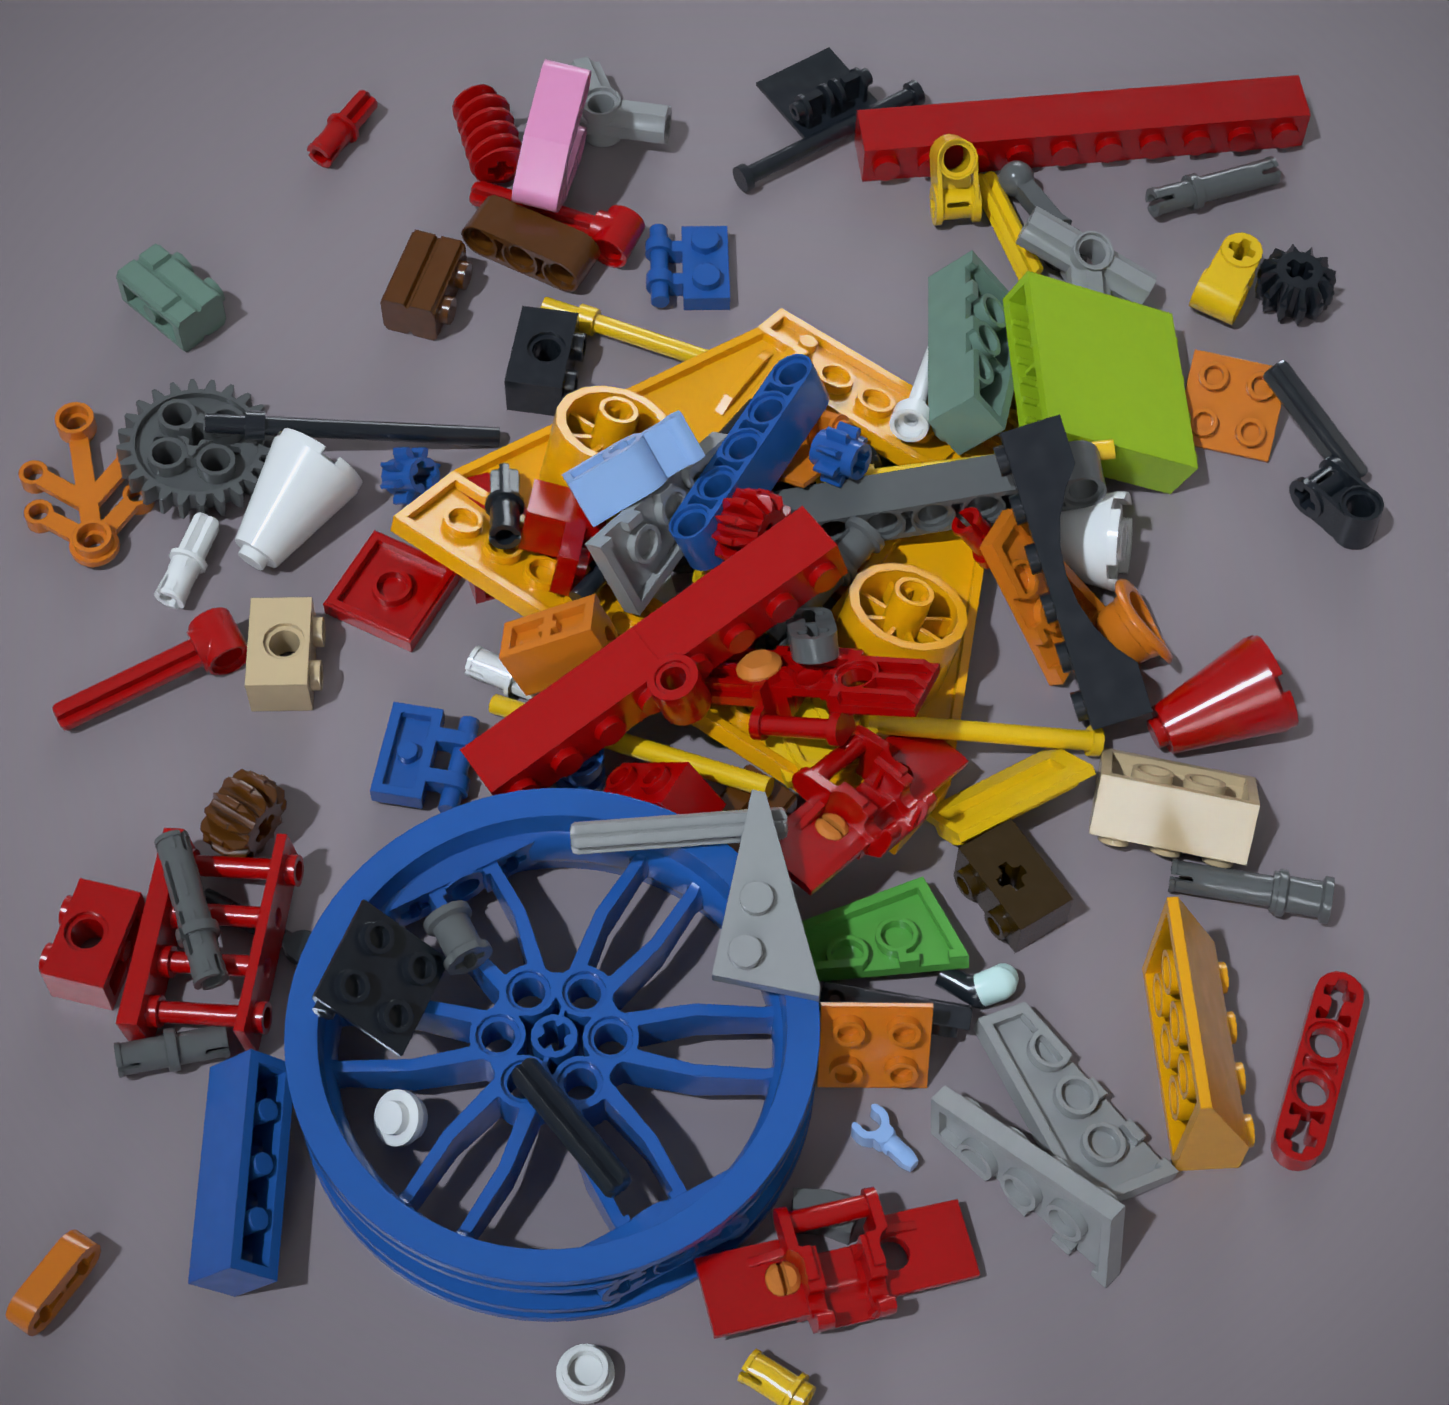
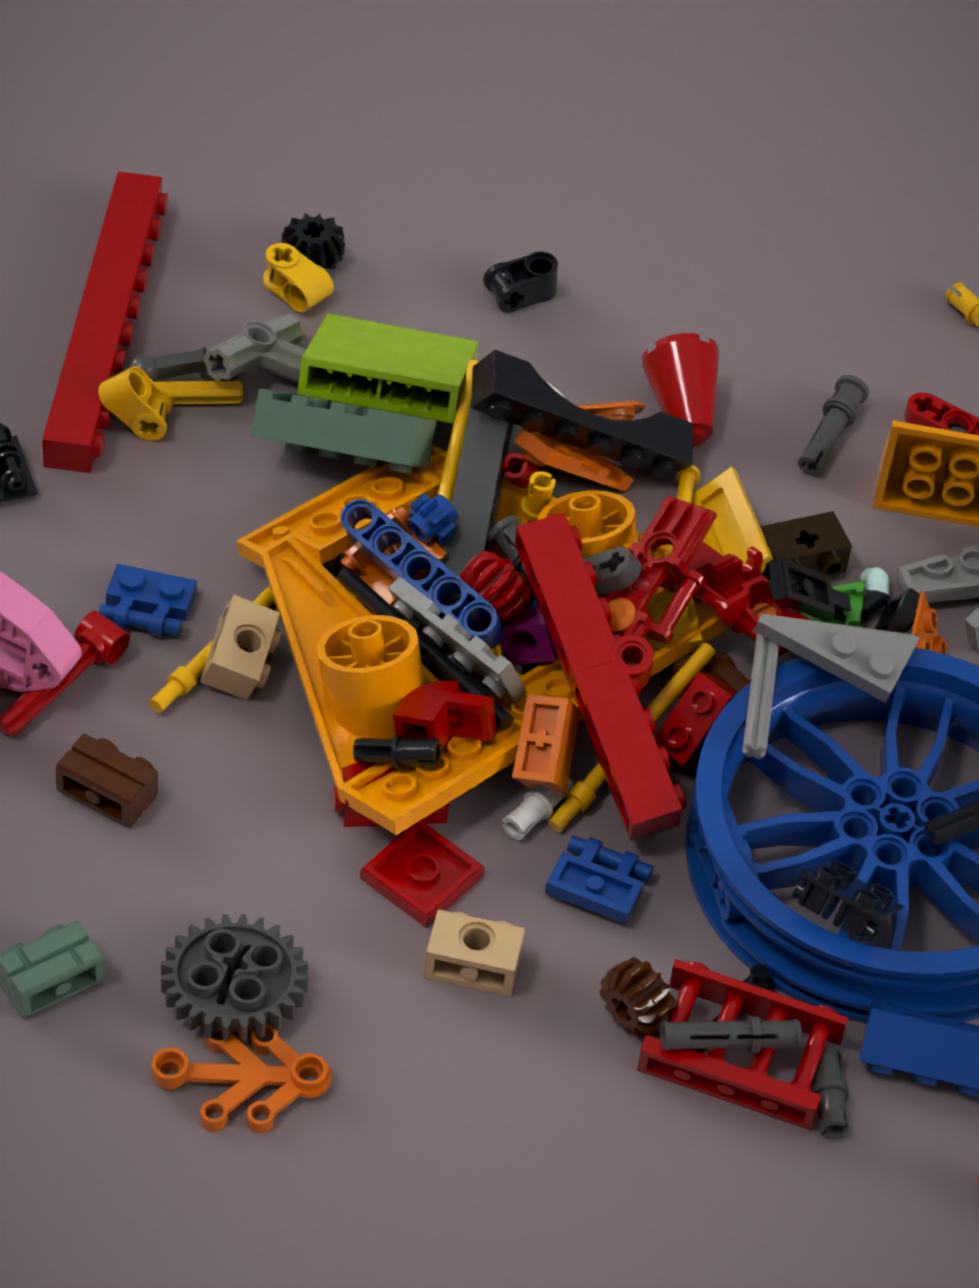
camera: 80 degrees left, 10 degrees down
(94, 973) = (717, 1107): red brick -> none
(187, 561) = (351, 1006): white axle -> none
(212, 643) = (450, 1003): red axle -> none
(257, 426) = (241, 913): black bar -> none
(292, 498) = (323, 910): white cone -> none
(400, 1118) = (933, 935): white plate -> none
(409, 474) = (319, 828): blue gear -> none
(457, 937) = (820, 842): dark grey bush -> none
(531, 243) = (86, 698): reddish brown beam -> none
(543, 360) = (223, 715): black brick -> none
(611, 335) = (227, 664): none -> tan brick
(632, 468) = (433, 636): light blue piece -> none
(746, 176) = (63, 539): black bar -> none
(875, 864) = (805, 590): none -> black hinge
(911, 415) = (394, 477): white piece -> none
(948, 561) = (538, 495): none -> yellow pin
(1174, 808) = (761, 440): tan slope -> none
(1196, 190) = (195, 271): dark grey pin -> none
(1231, 406) = (414, 305): orange hinge -> none
(1311, 416) = (448, 268): black axle -> none

